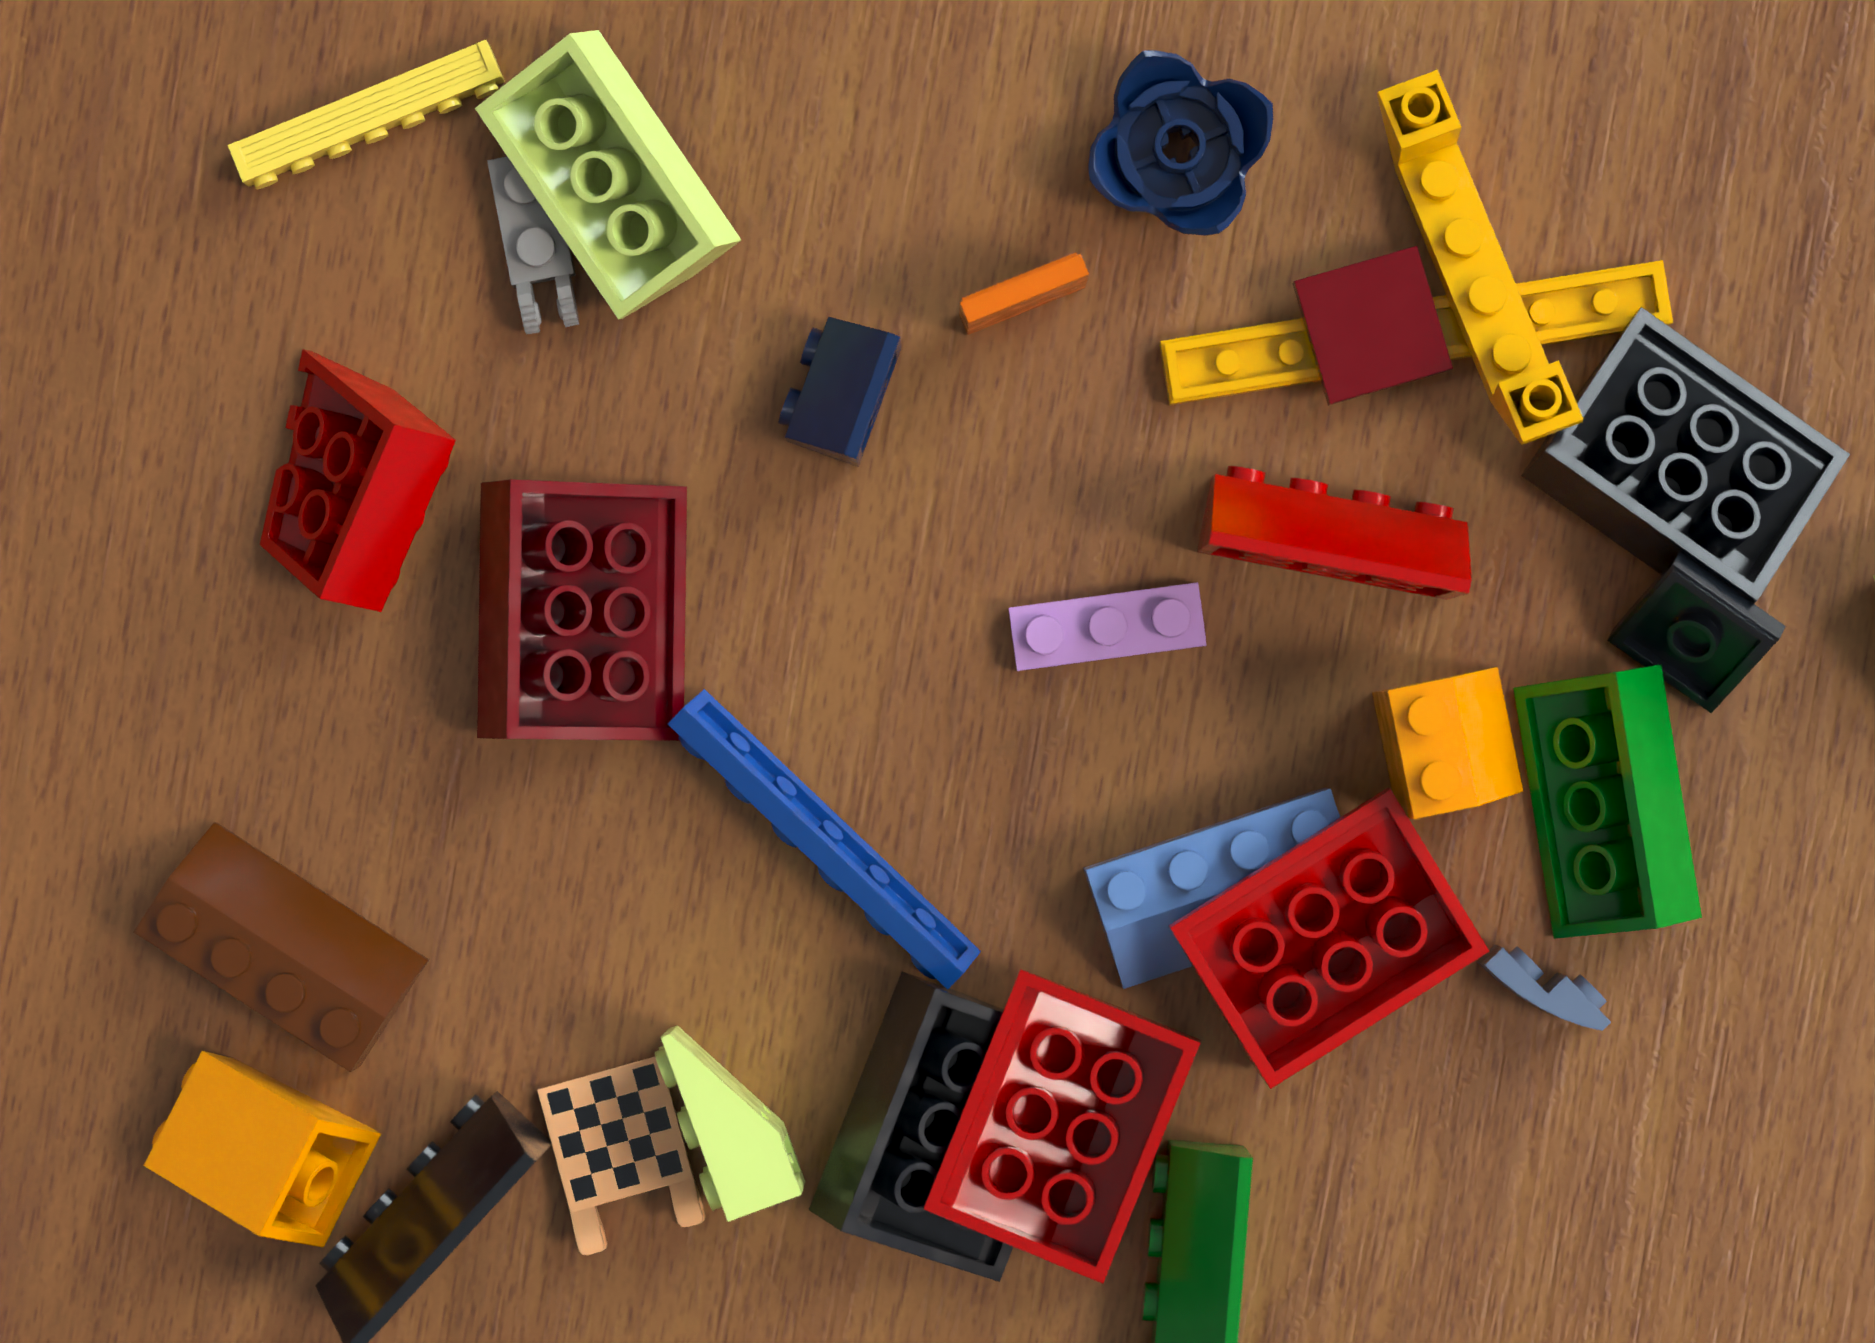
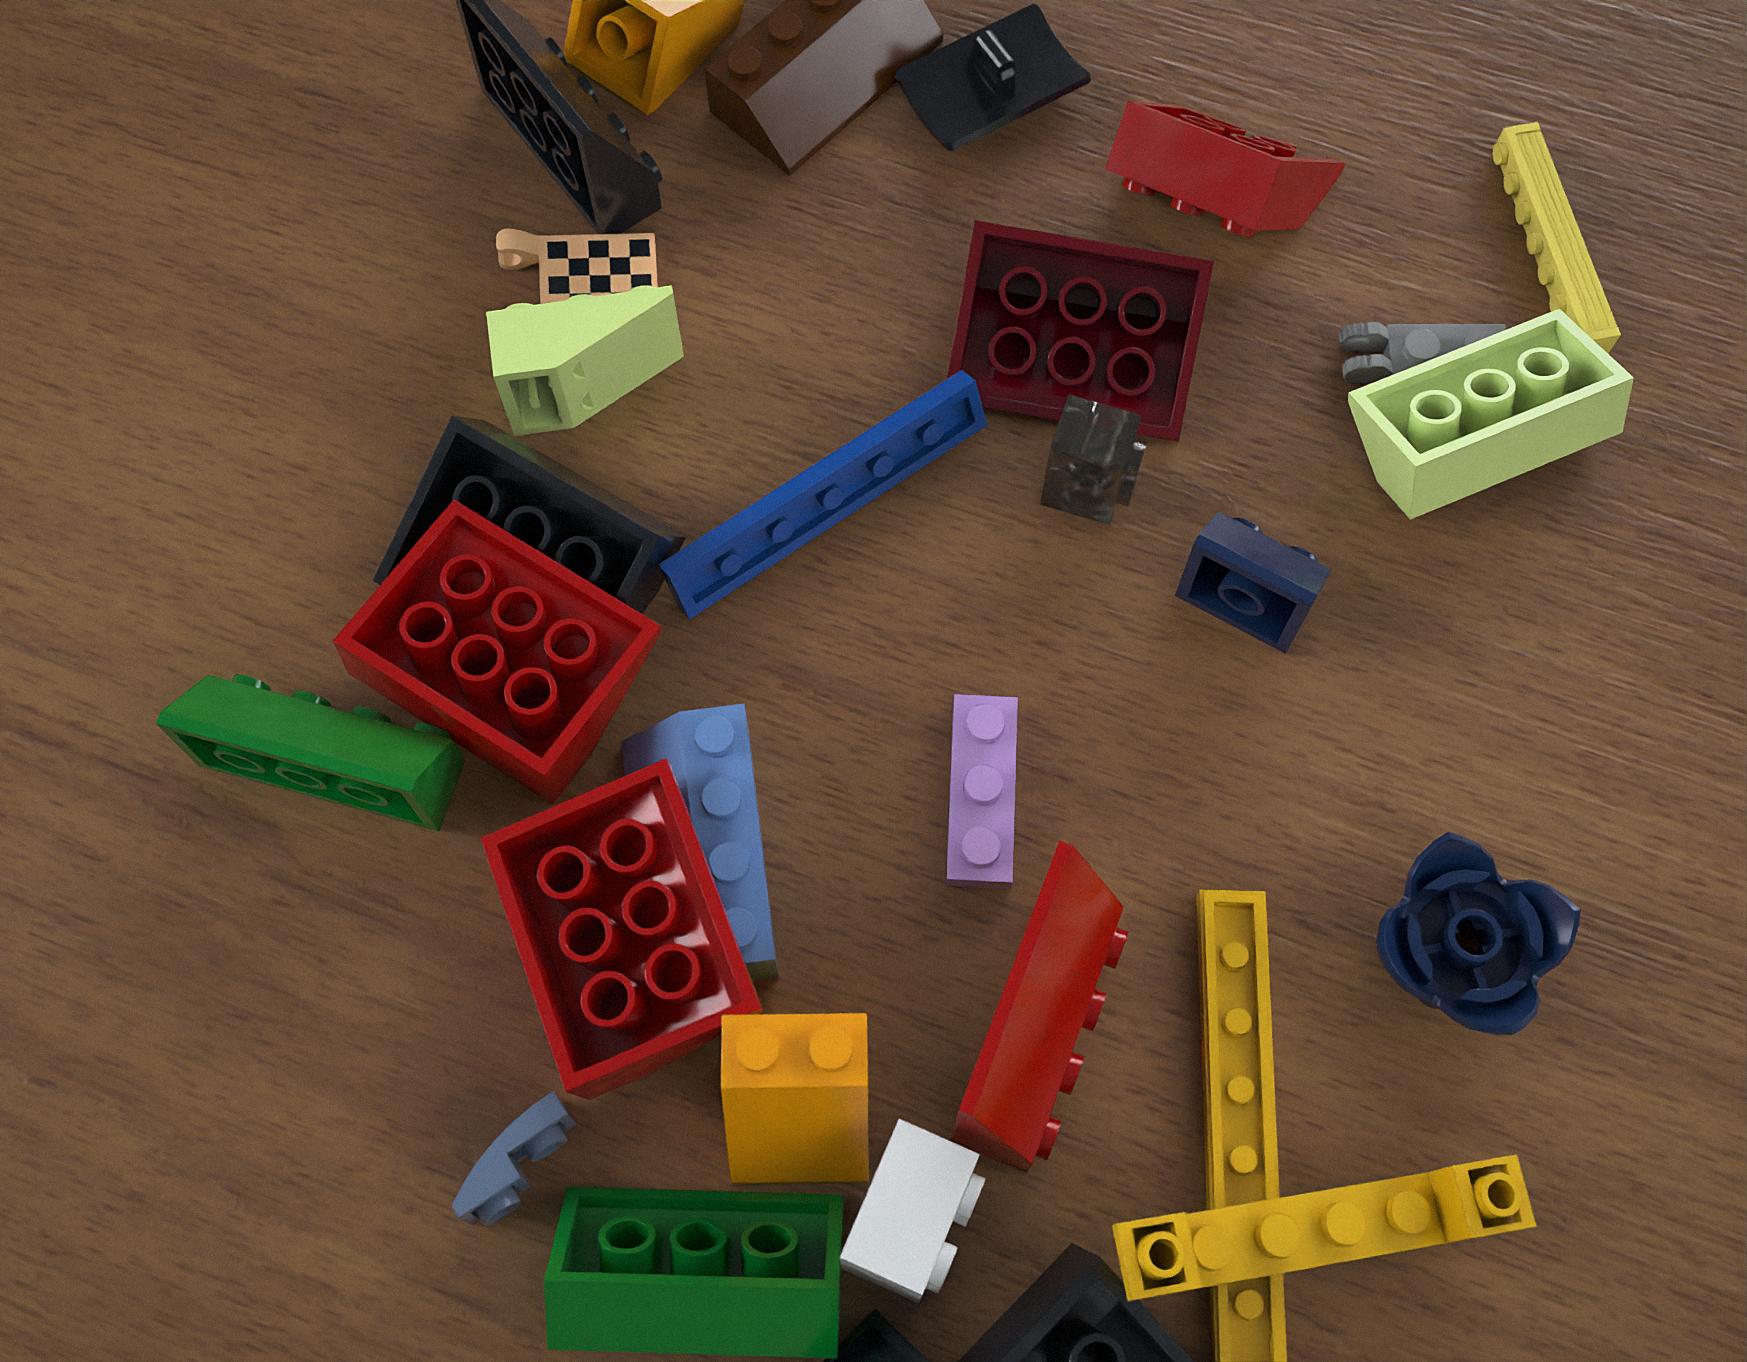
camera: 100 degrees right, 20 degrees down
(273, 755) = (990, 78): none -> black shield
(752, 571) = (1093, 460): none -> clear smoke brick
(1023, 293) = (1334, 750): orange tile -> none
(1372, 325) = (1257, 1108): dark red tile -> none
(1533, 622) = (909, 1211): none -> white brick

